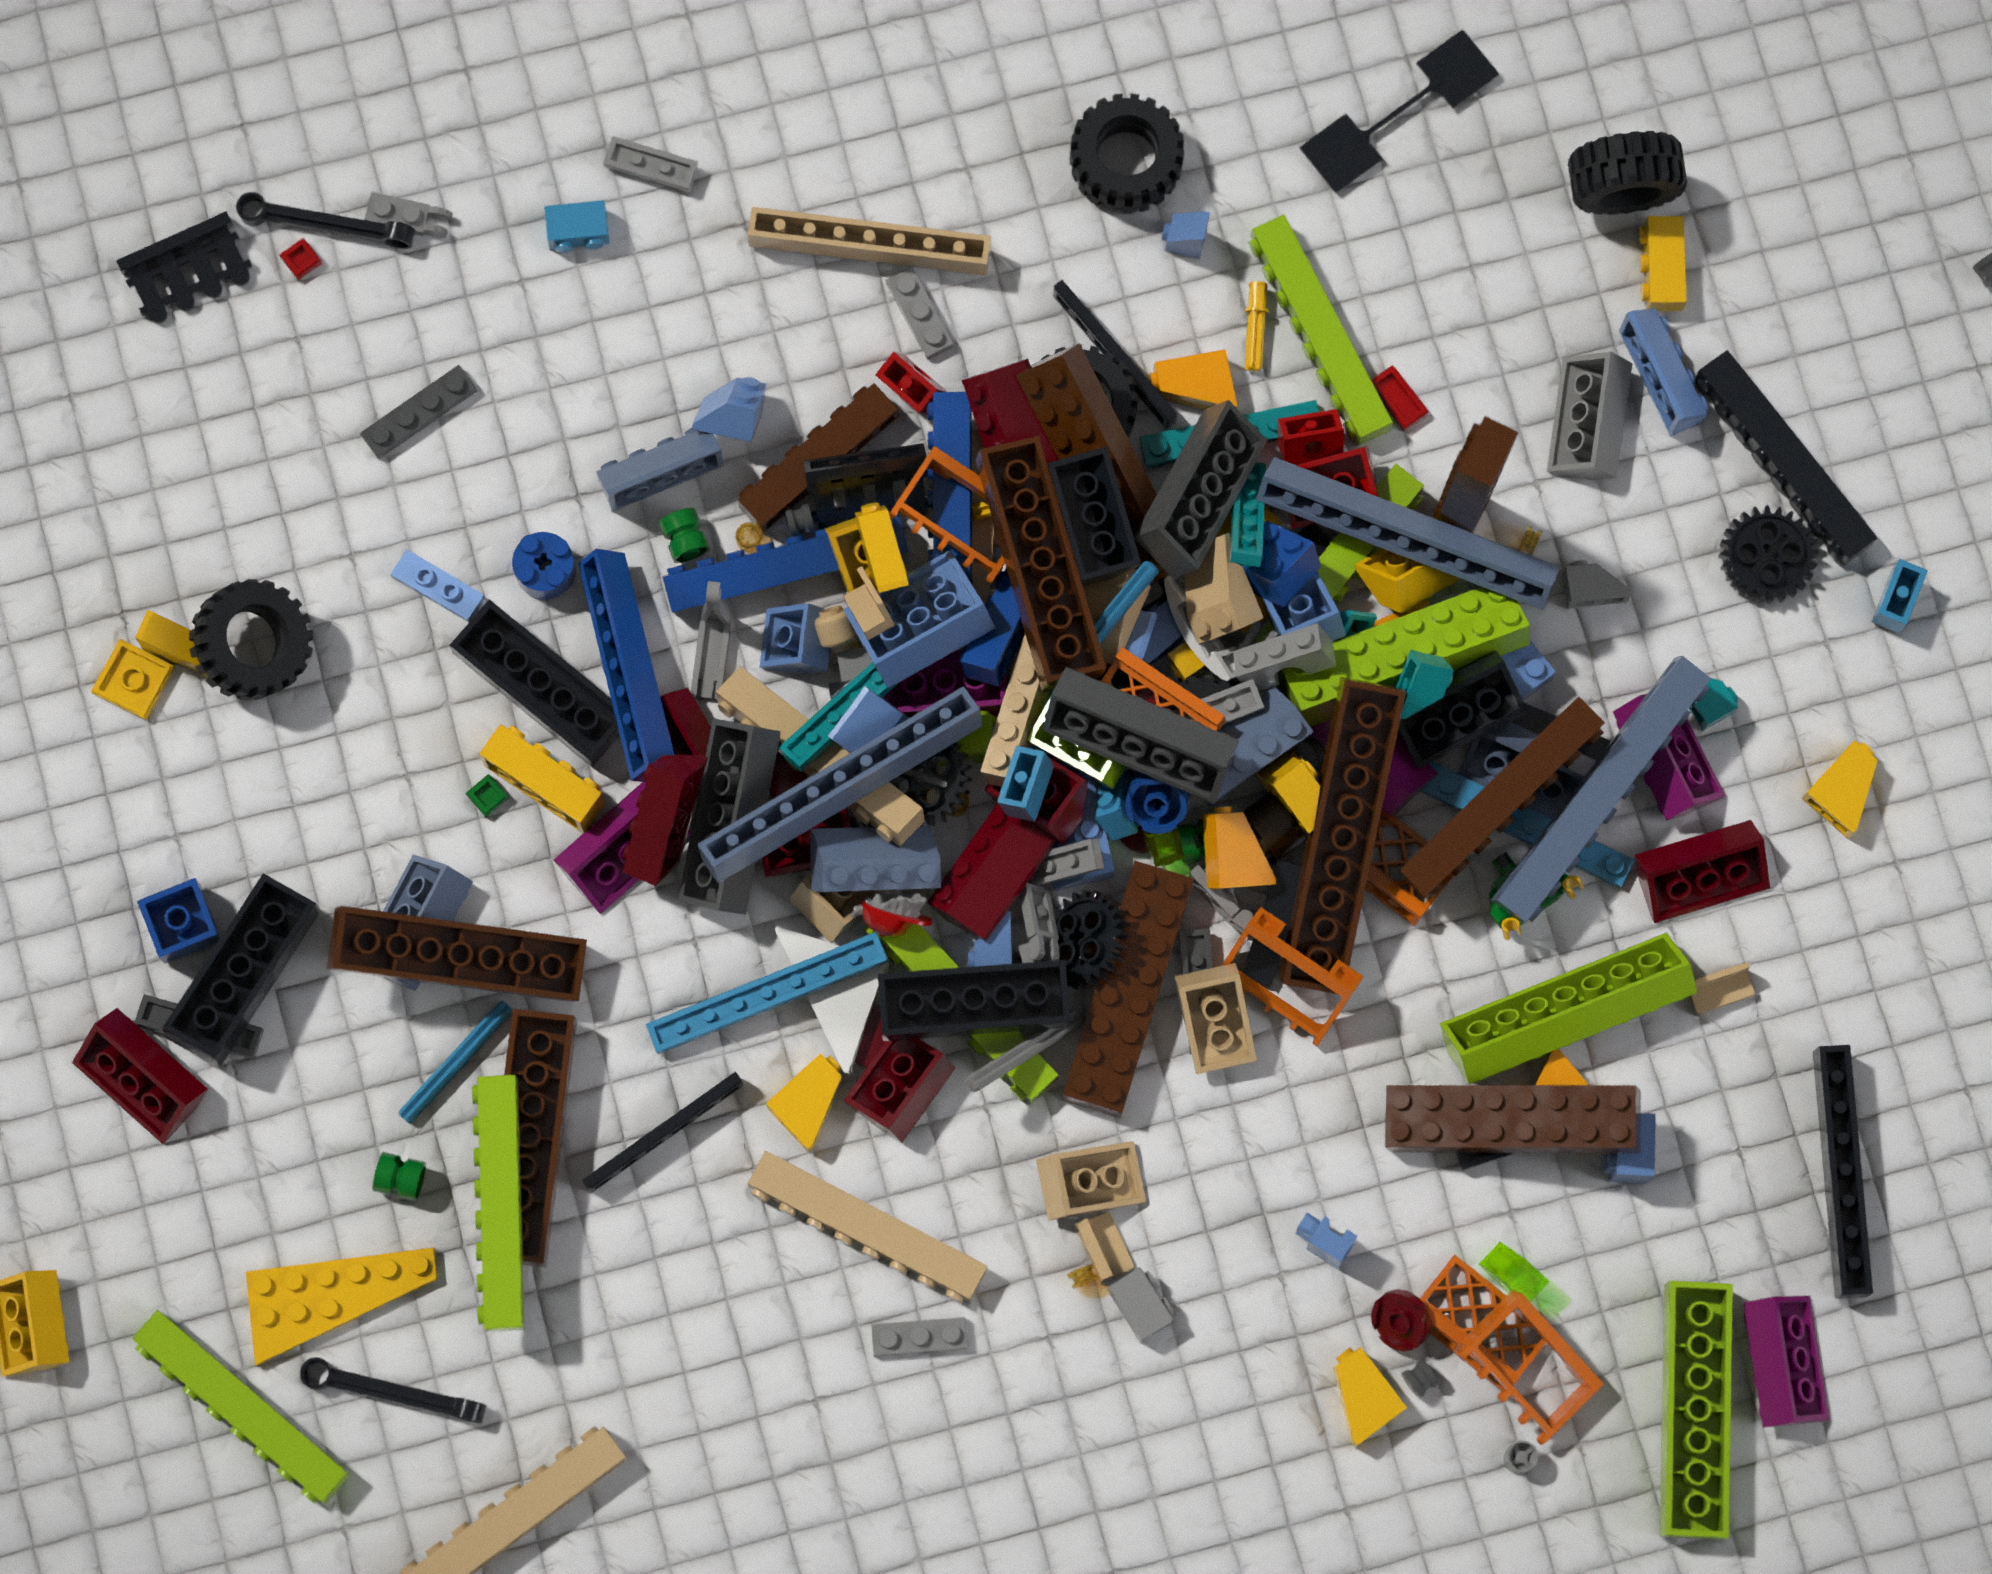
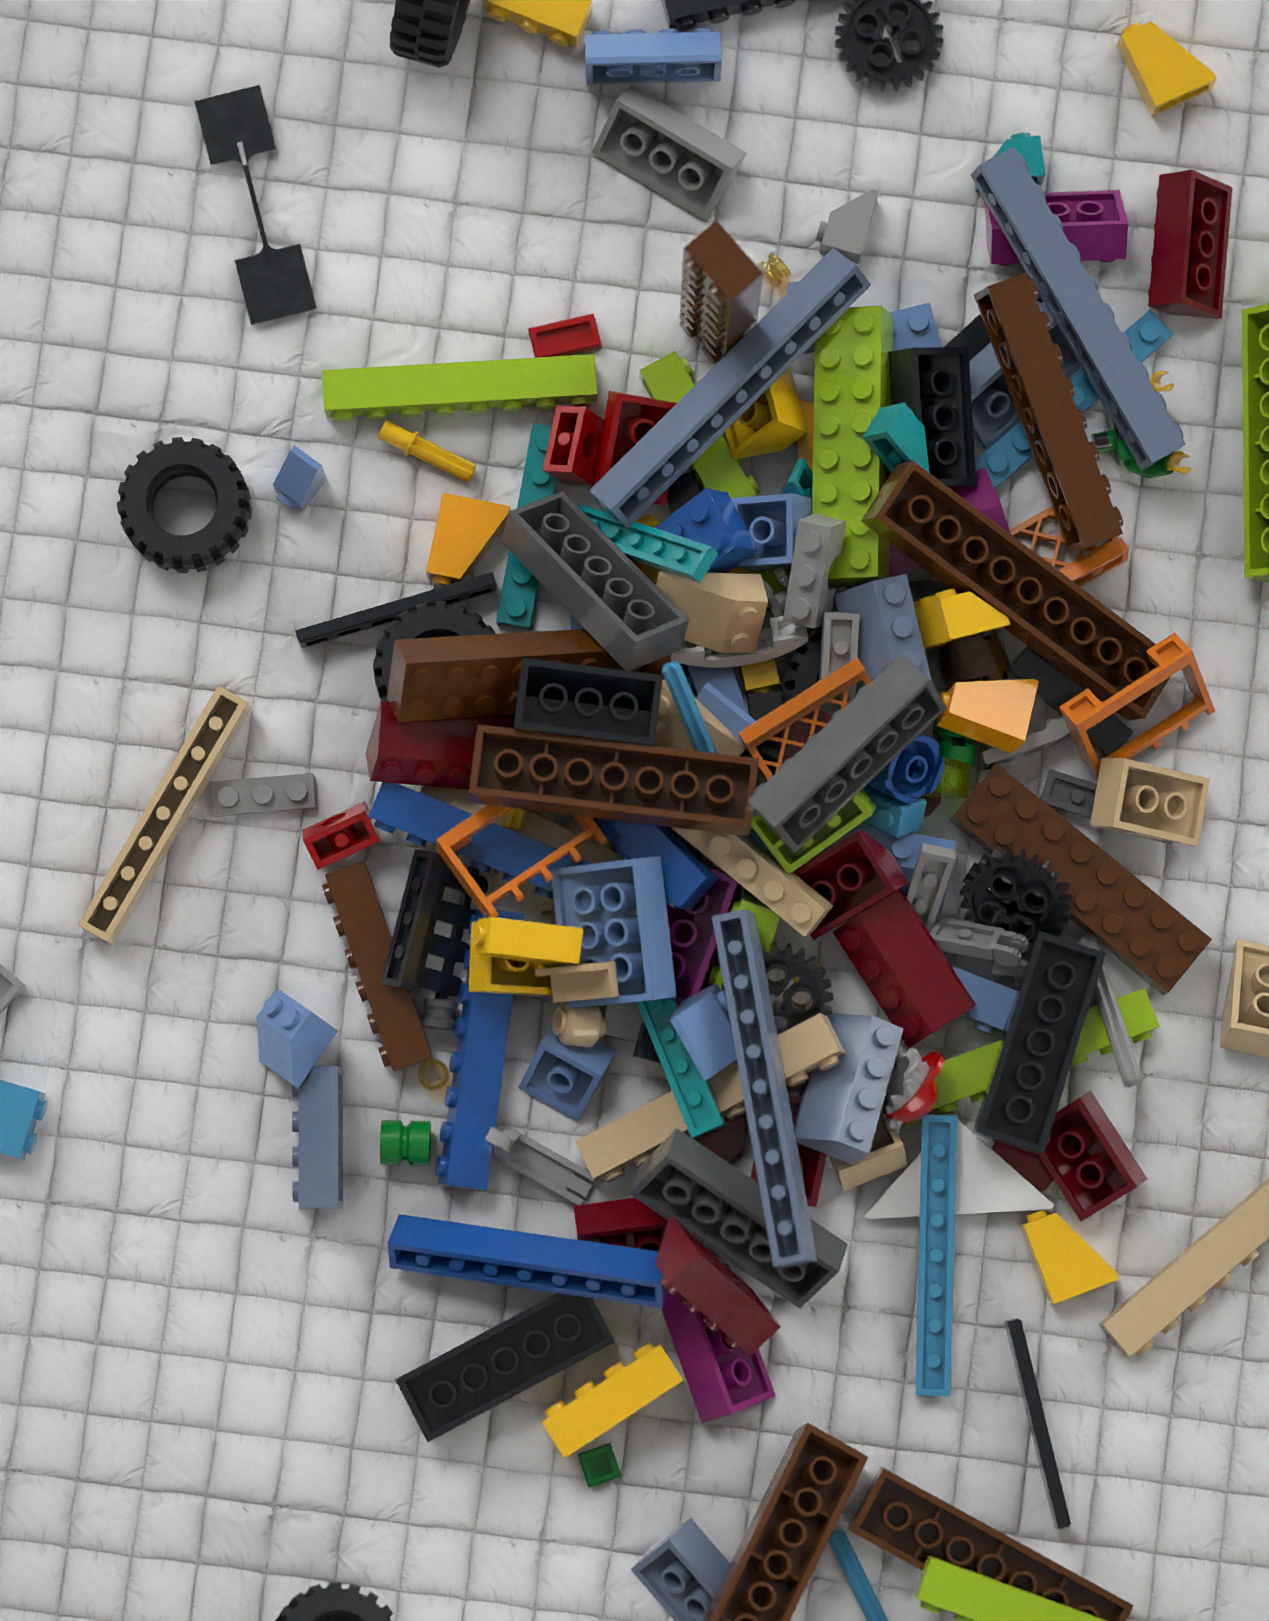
camera: 65 degrees left, 5 degrees up
(418, 412) = (147, 1372): dark grey plate -> none
(437, 585) = (348, 1427): light blue plate -> none
(556, 577) = (356, 1309): blue brick -> none
(1025, 783) = (838, 894): dark azure brick -> none

